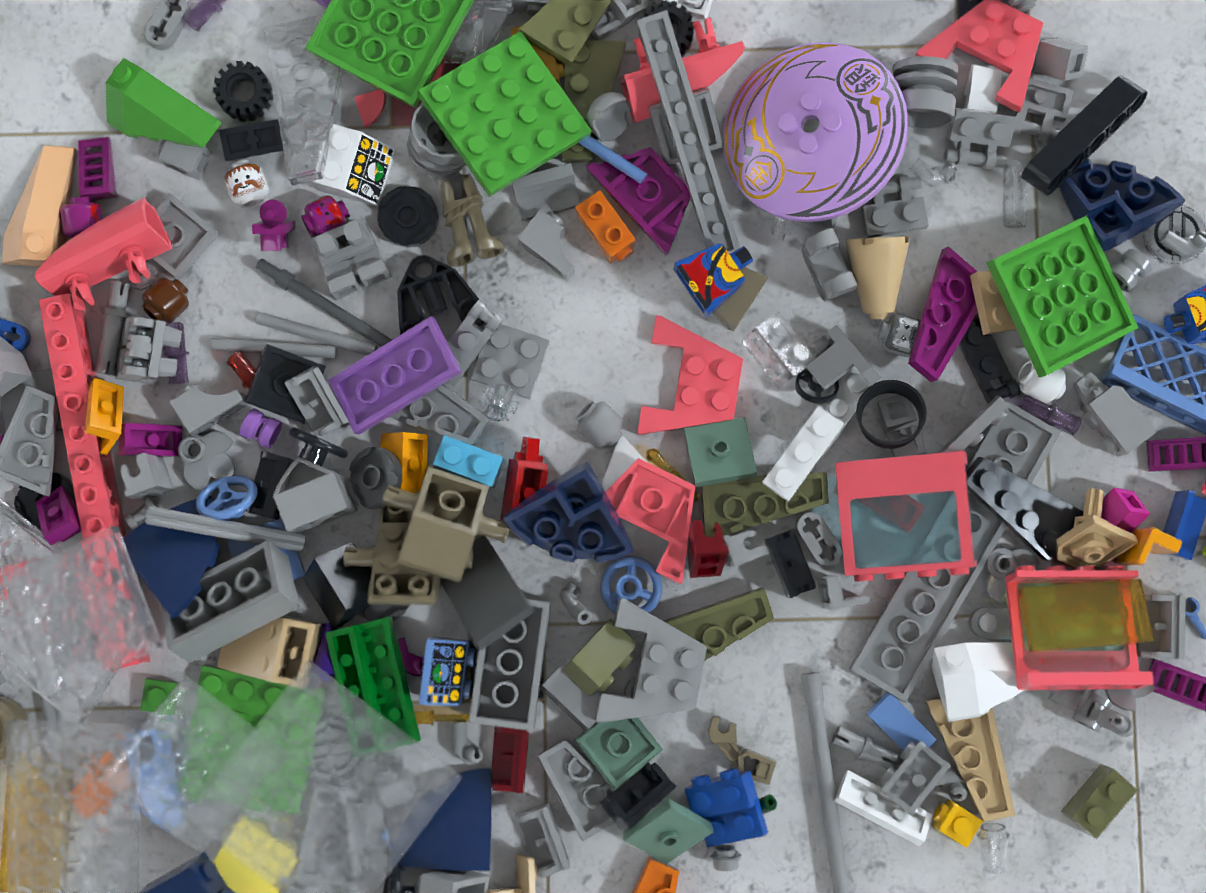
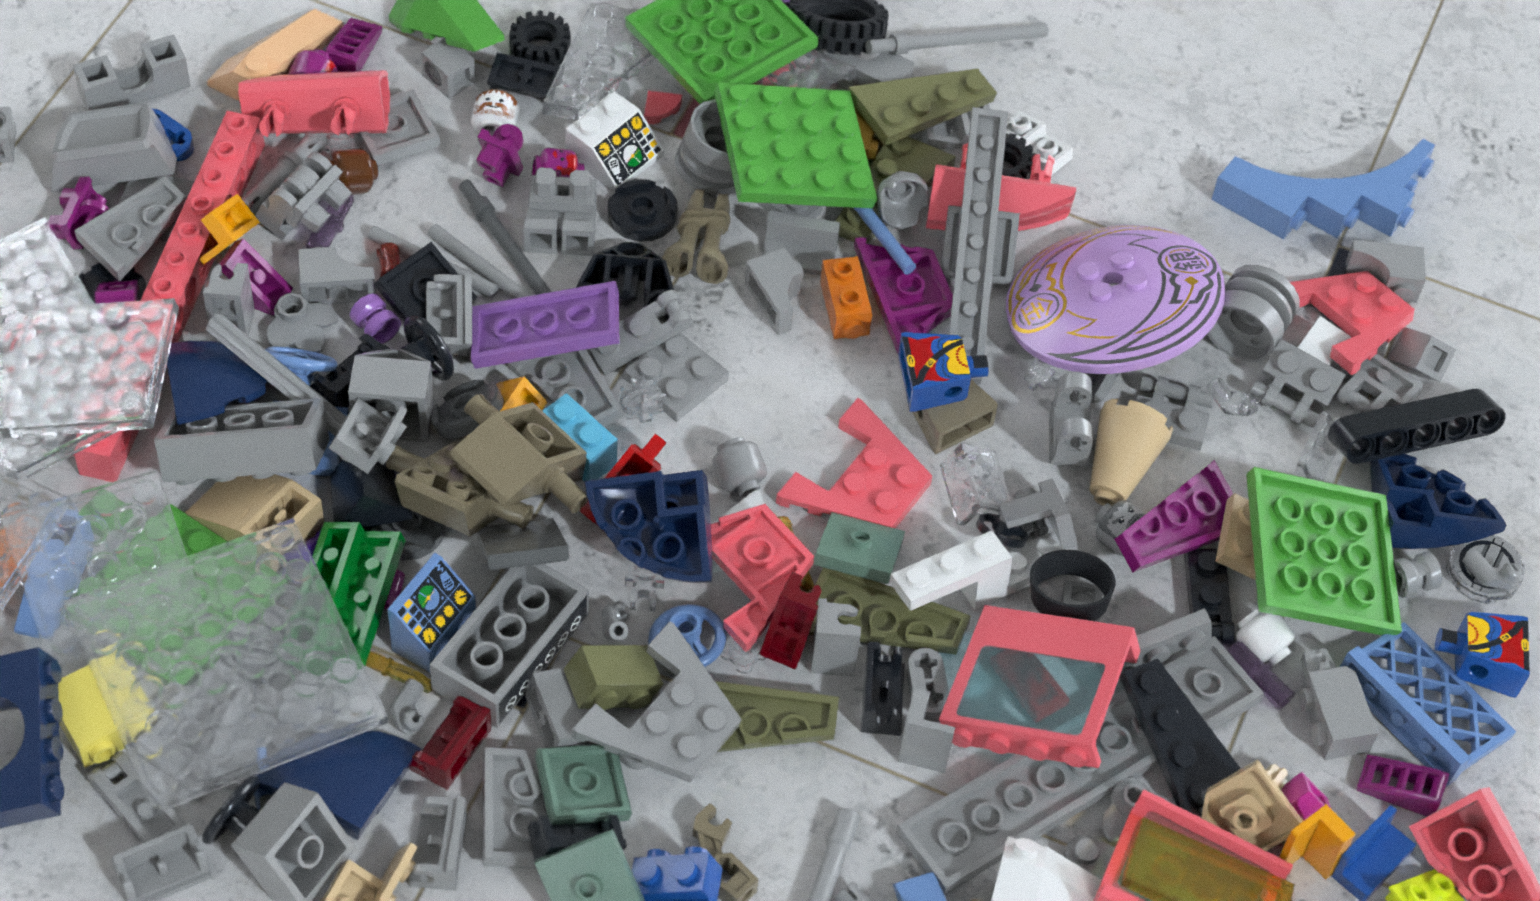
camera: 20 degrees right, 30 degrees down
(321, 558) = (368, 436): none -> light grey bracket

